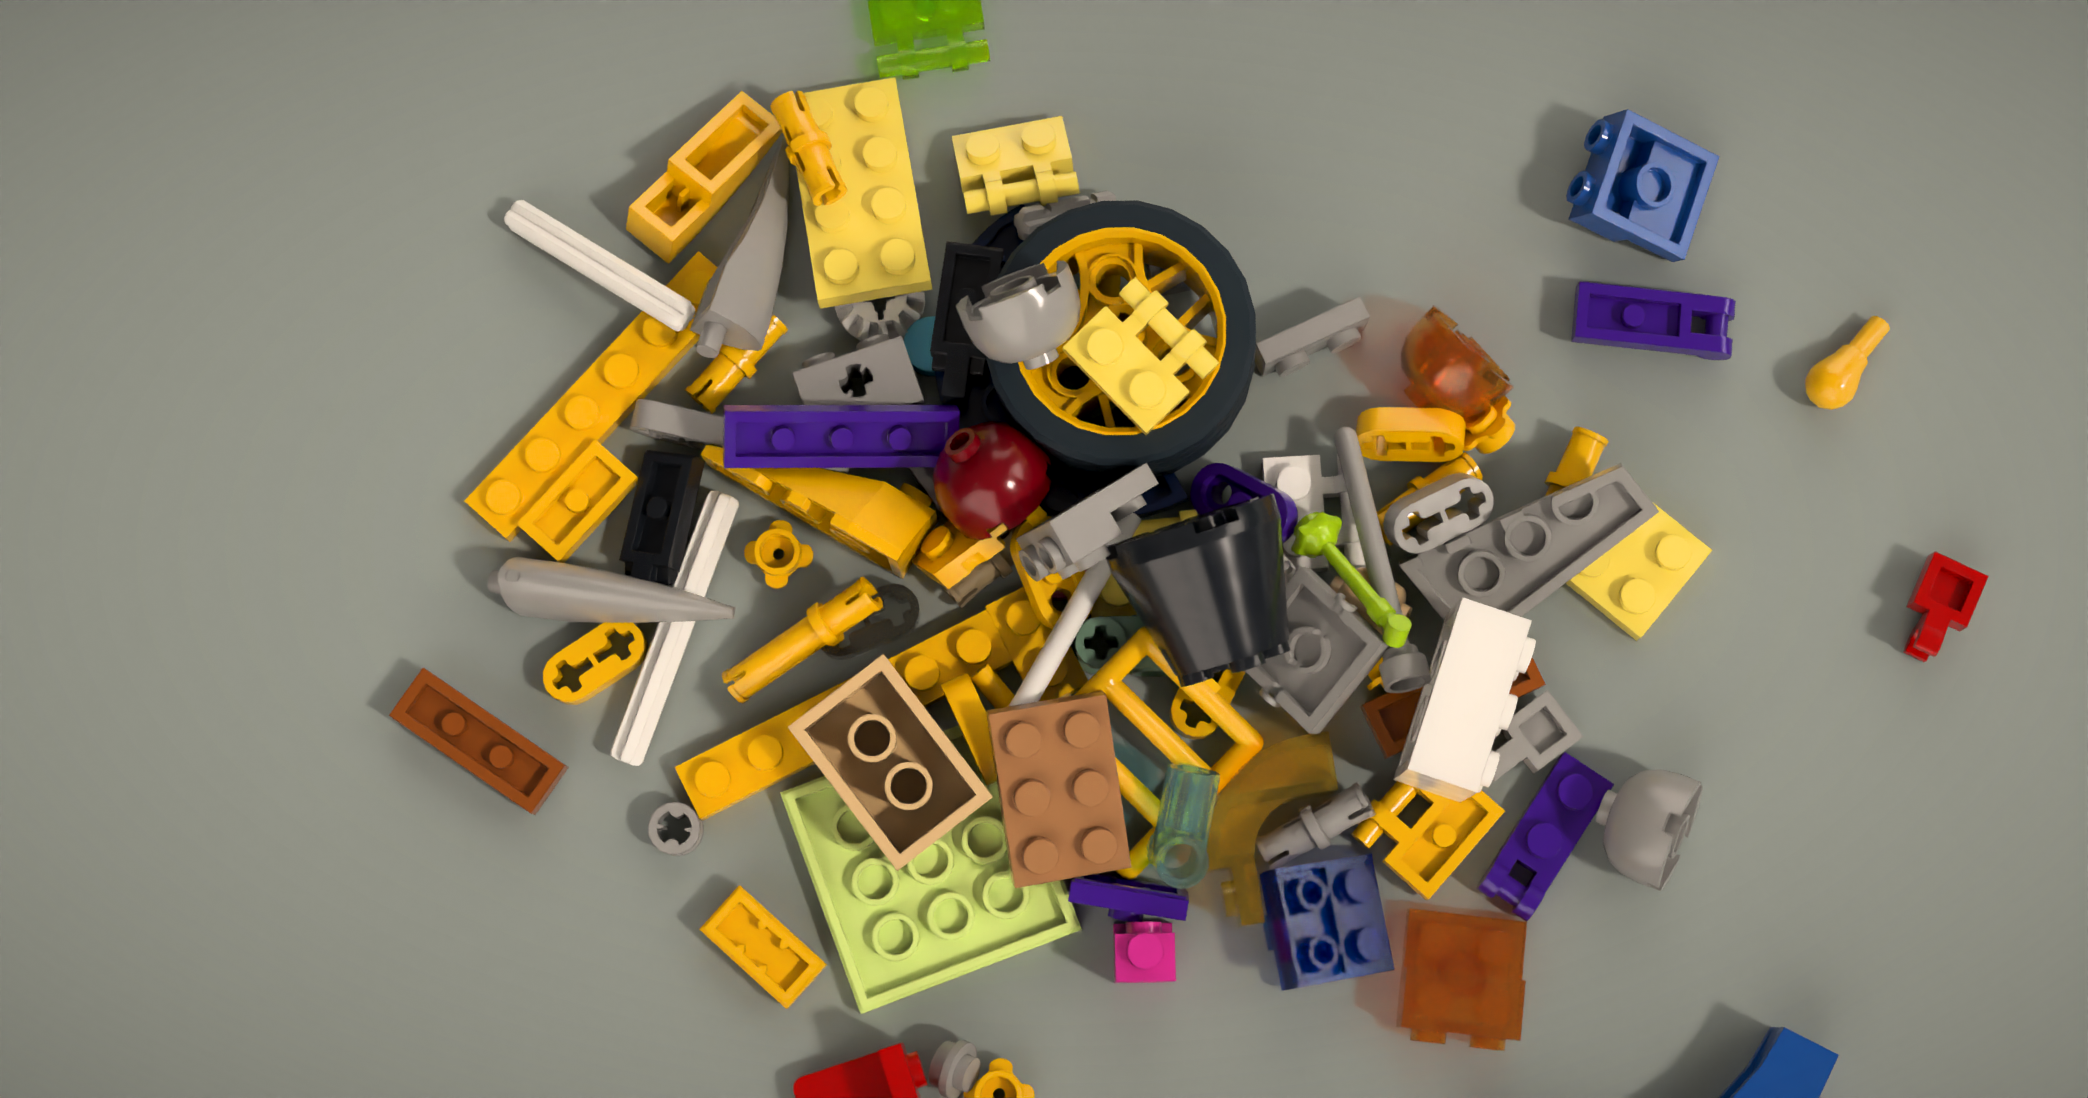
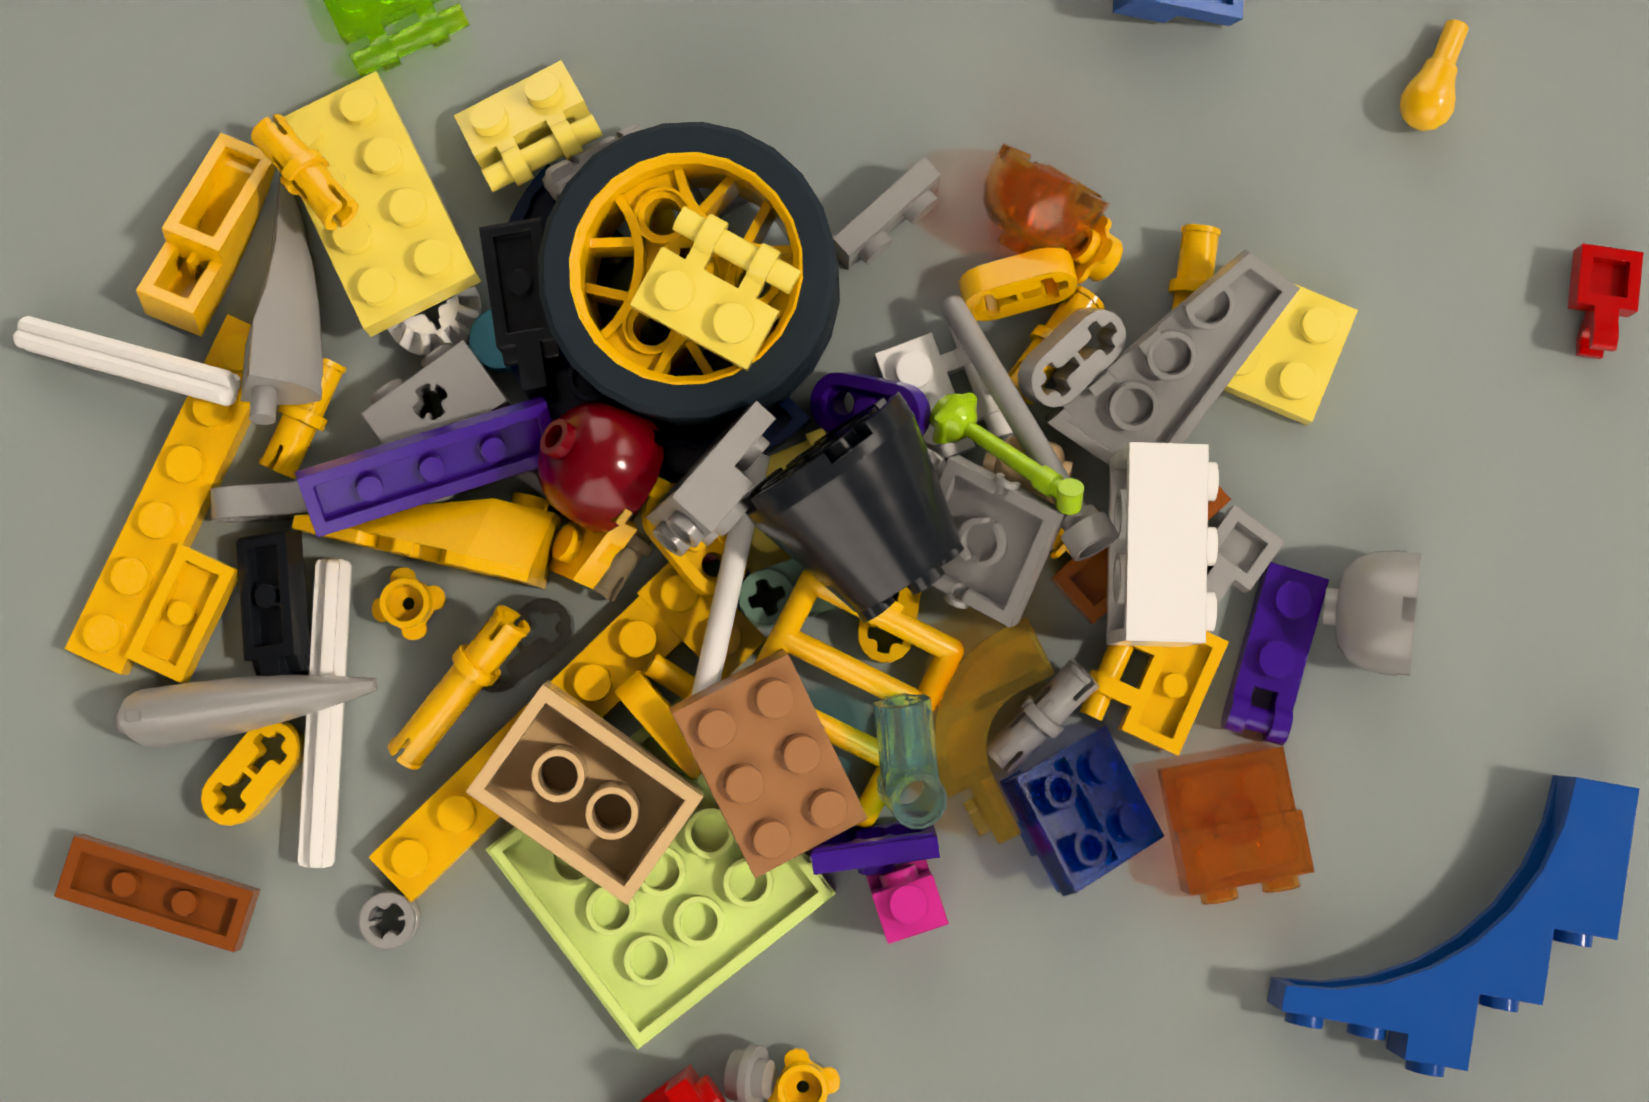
camera: 20 degrees left, 5 degrees up
(763, 947) = (516, 1012): yellow plate -> none
(1024, 315) = (578, 283): light grey cylinder -> none
(1652, 320) = (1227, 91): dark purple plate -> none

